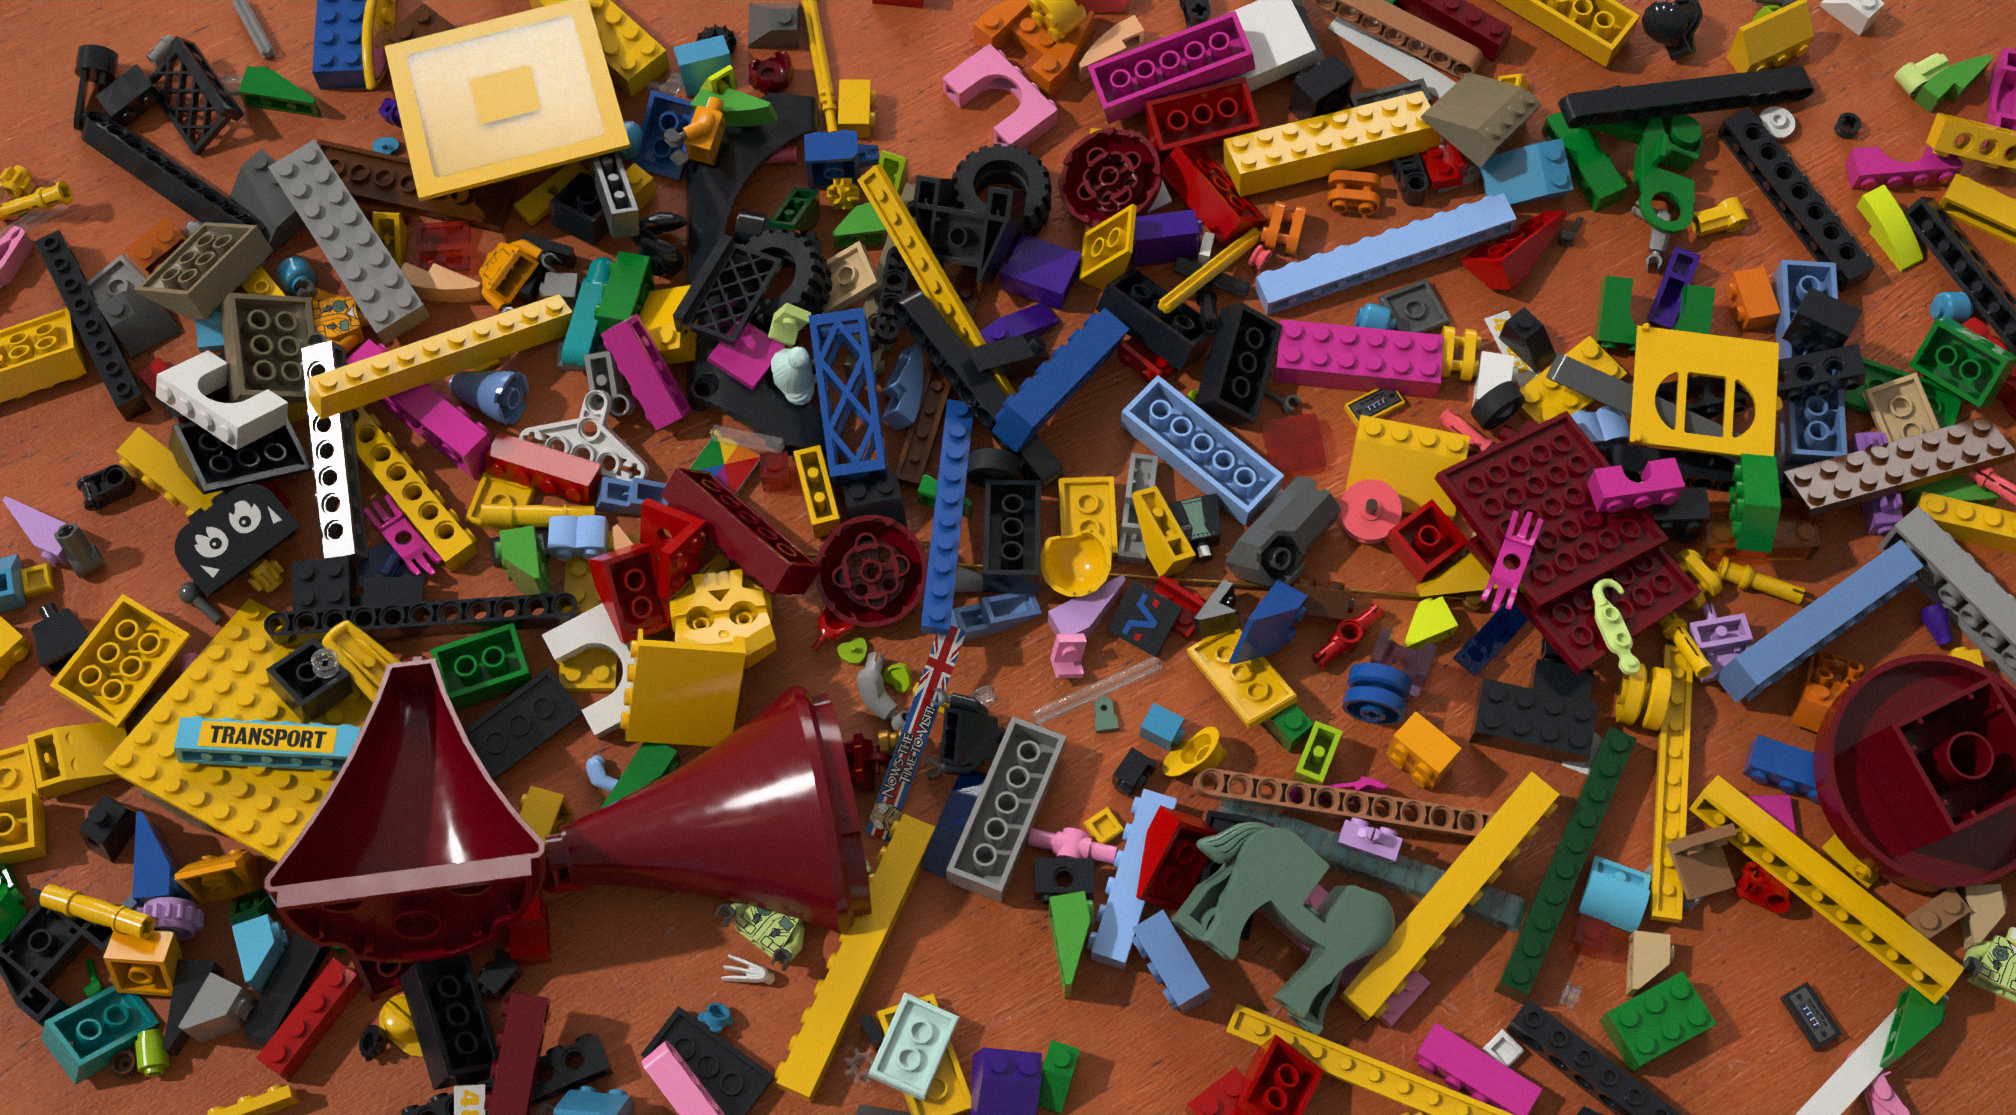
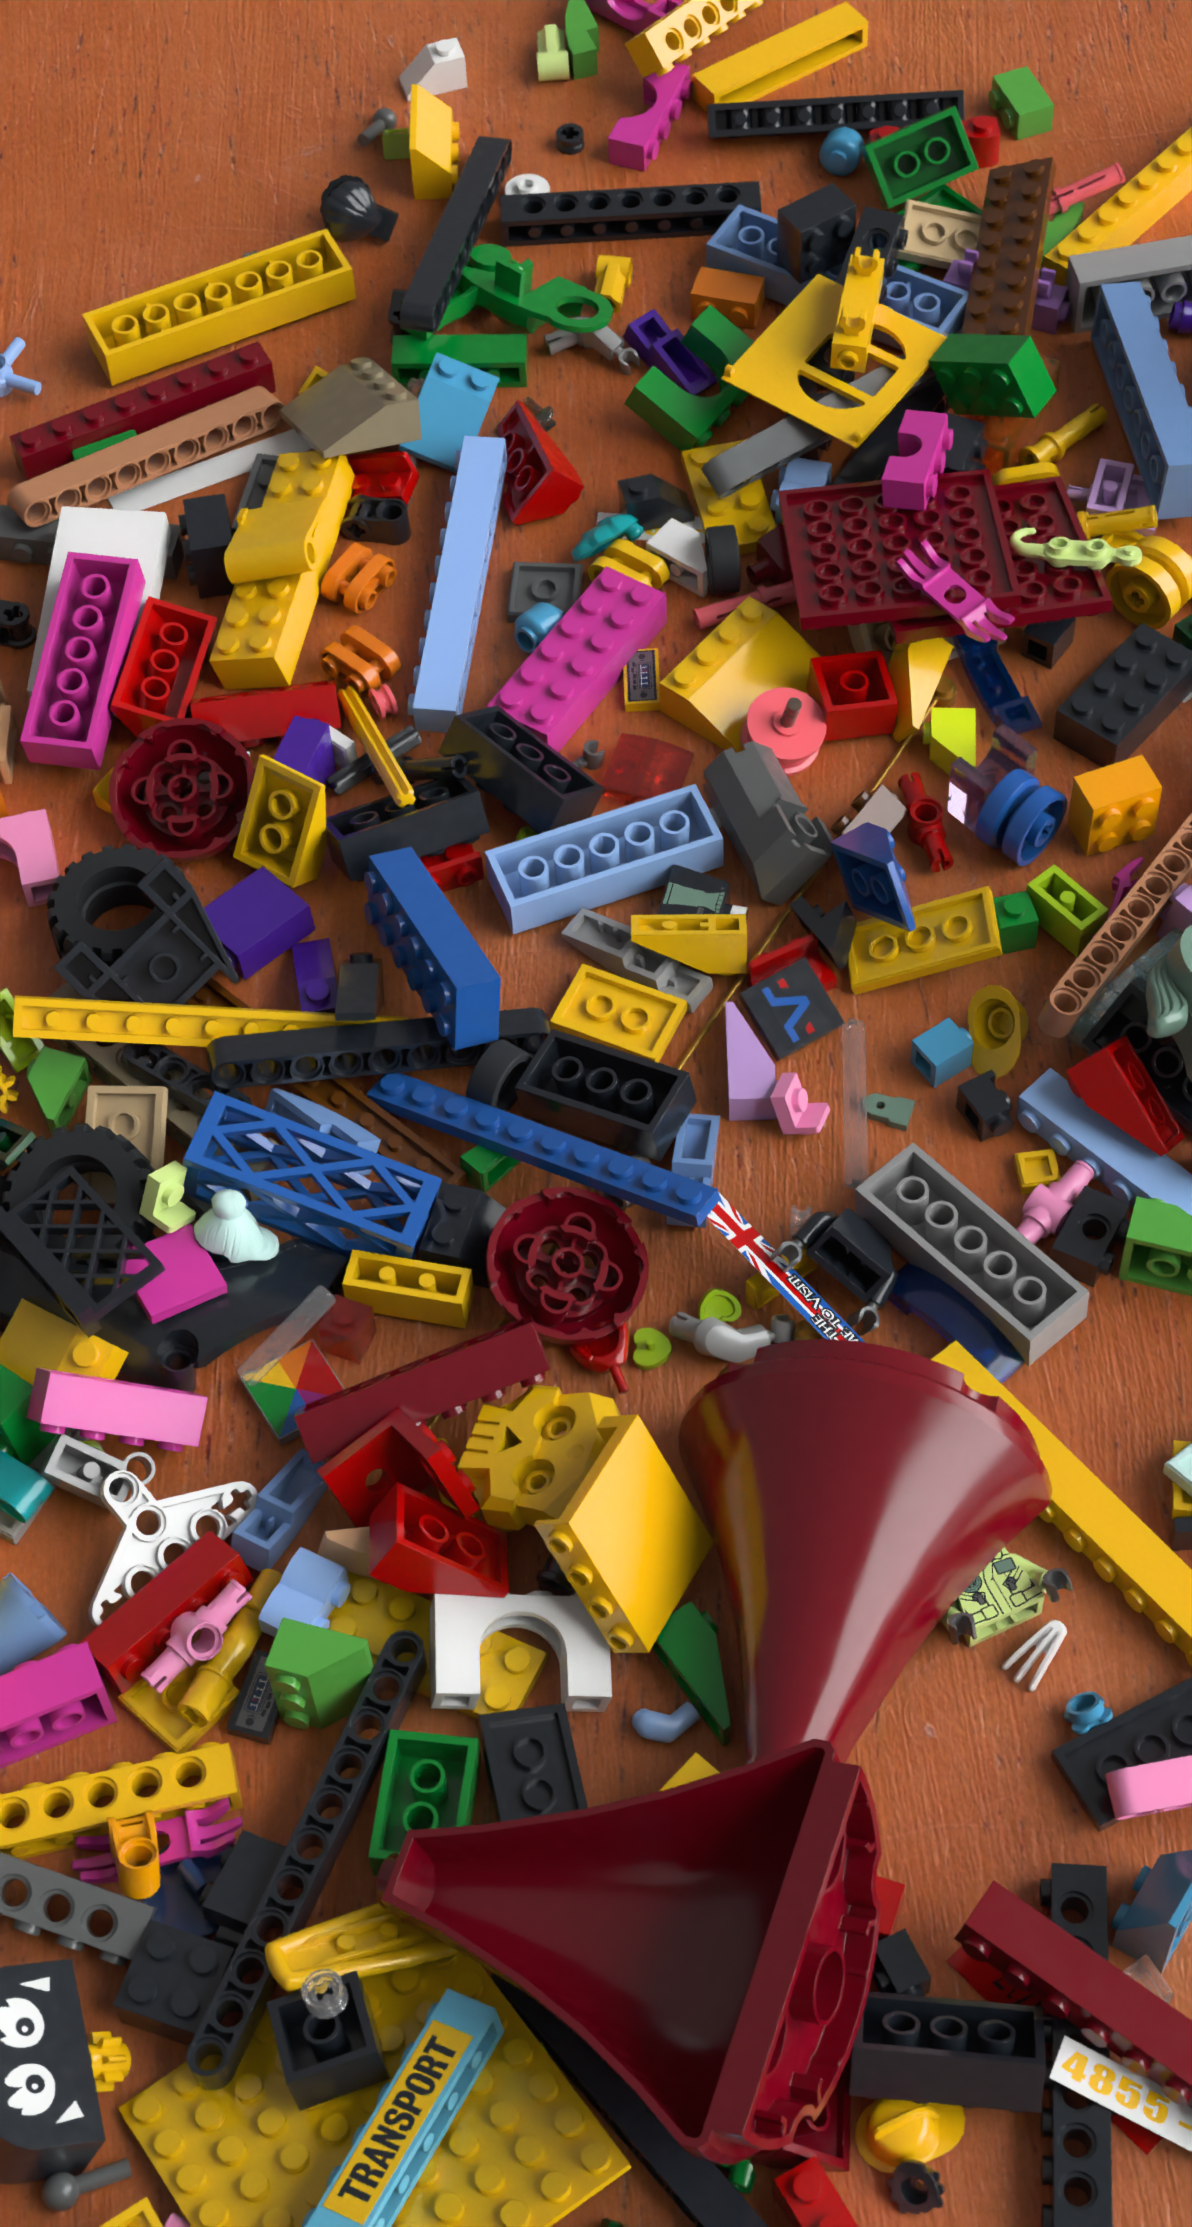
camera: 60 degrees left, 10 degrees down
(388, 524) = (135, 1854): none -> light orange piece
(516, 490) = (213, 1624): none -> bright pink pin
(1076, 563) = (690, 1031): yellow cylinder -> none
(1332, 121) = (274, 541): none -> yellow door
(1479, 321) = (605, 532): none -> teal arm
(1560, 679) = (1087, 650): black brick -> none
(1748, 384) = (857, 312): none -> yellow brick
(1890, 227) = (716, 155): neon yellow slope -> none

